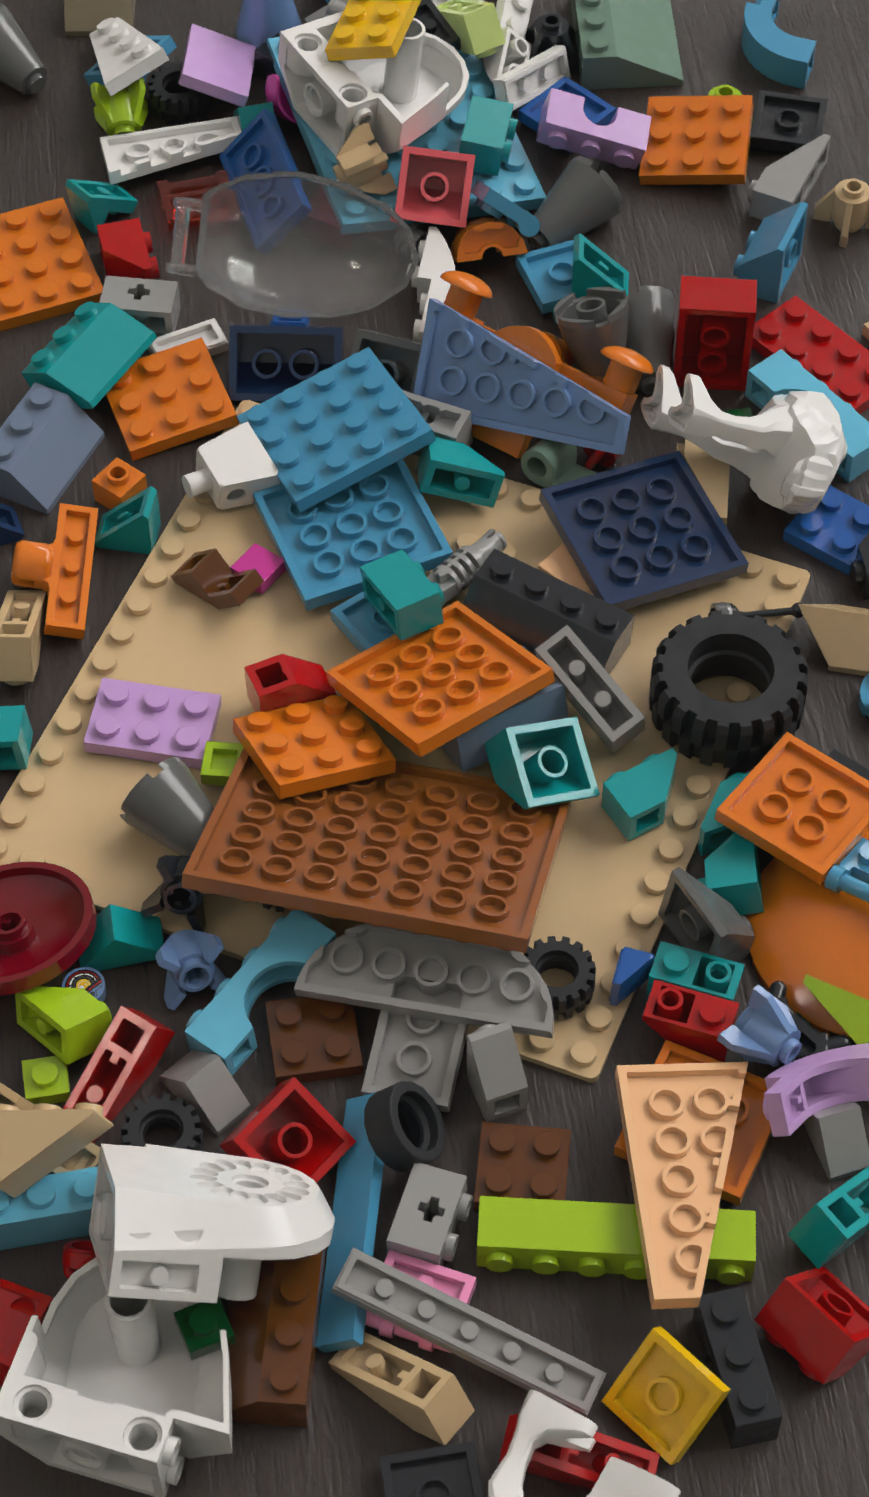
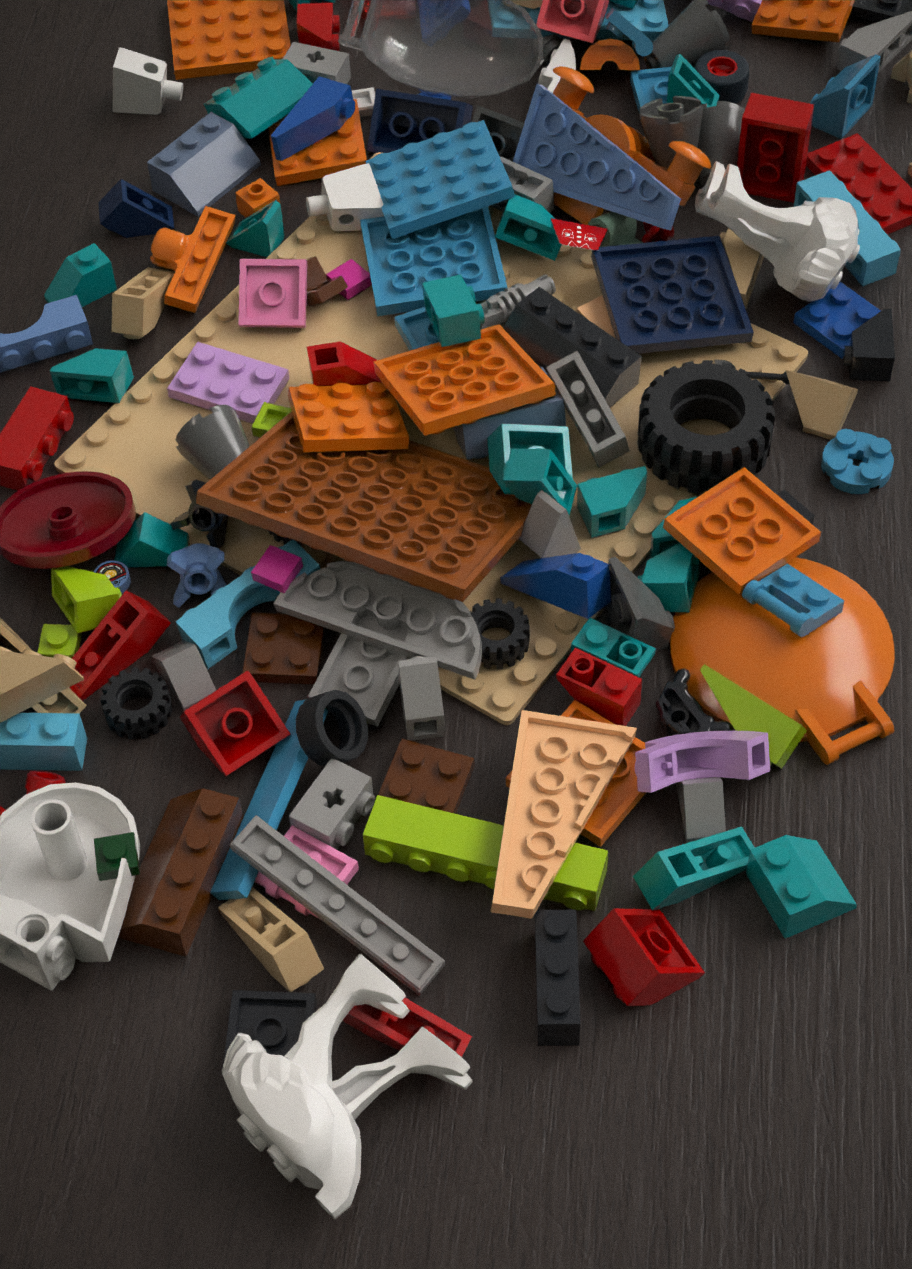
camera: 15 degrees right, 0 degrees up
(163, 371) = (315, 116): none -> blue slope
(178, 603) = (273, 293): none -> bright pink plate
(199, 1222) = (109, 751): white animal -> none
(289, 947) = (277, 569): none -> dark pink tile
(520, 475) = (578, 234): none -> red sticker
(563, 787) = (537, 470): none -> teal slope
(586, 842) = (549, 528): none -> light grey slope
(620, 902) = (567, 581): none -> blue slope
(628, 243) = (725, 73): none -> black wheel
(630, 973) = (556, 640): blue slope -> none
(665, 1395) = (487, 987): yellow plate -> none
(763, 1031) = (656, 704): medium blue brick -> none

